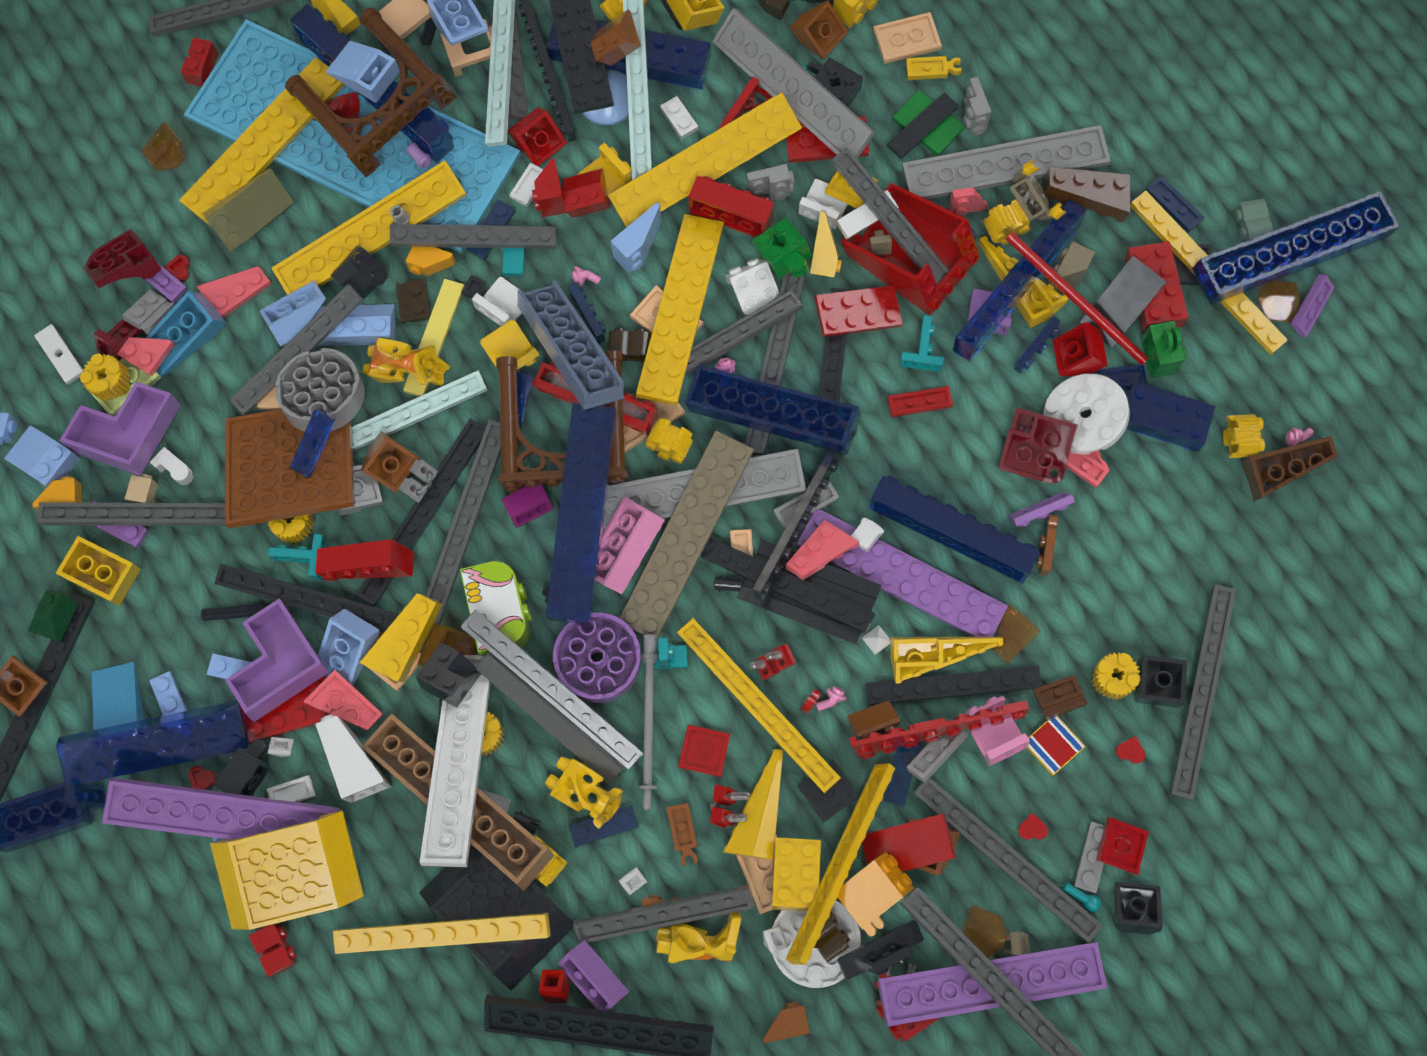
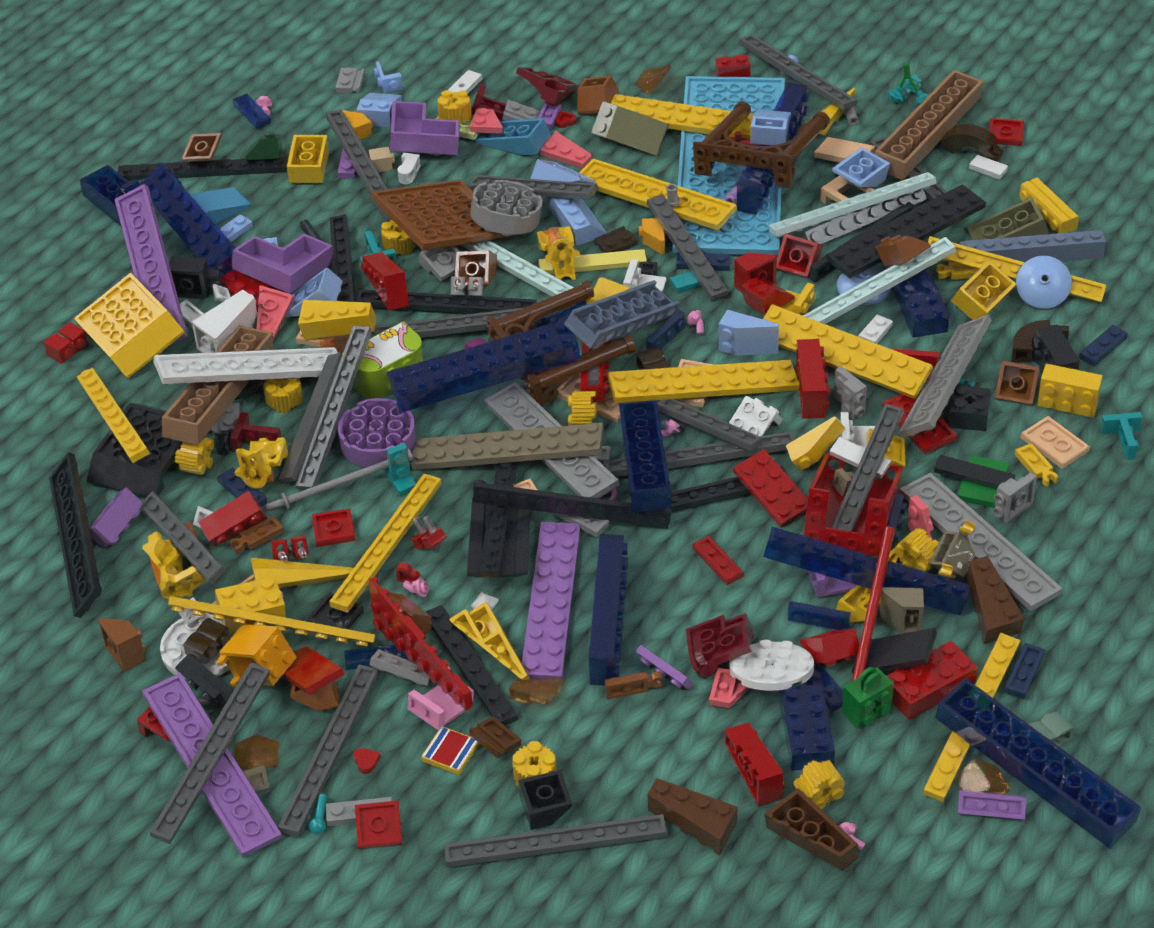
camera: 65 degrees right, 30 degrees down
(168, 220) = (593, 92): none -> dark orange slope
(312, 443) = (457, 207): clear blue plate -> none
(360, 272) = (615, 200): black slope -> none
(448, 675) = (314, 341): black slope -> none
(530, 788) = (247, 432): none -> dark red bracket
(554, 986) = (97, 497): red brick -> none
(625, 543) = (477, 415): bright pink slope -> none
(659, 851) = (232, 519): none -> red wedge
(785, 252) = (794, 418): green brick -> none
(819, 549) = (545, 529): coral wing -> none
(867, 534) = (572, 556): white tile -> none
(923, 359) = (757, 543): teal bracket -> none
(1131, 751) = (472, 807): red tile -> none
(1137, 908) = (324, 852): black slope -> none
(1191, 479) = (755, 764): none -> red wedge
(1231, 553) = (694, 813): none -> reddish brown wedge

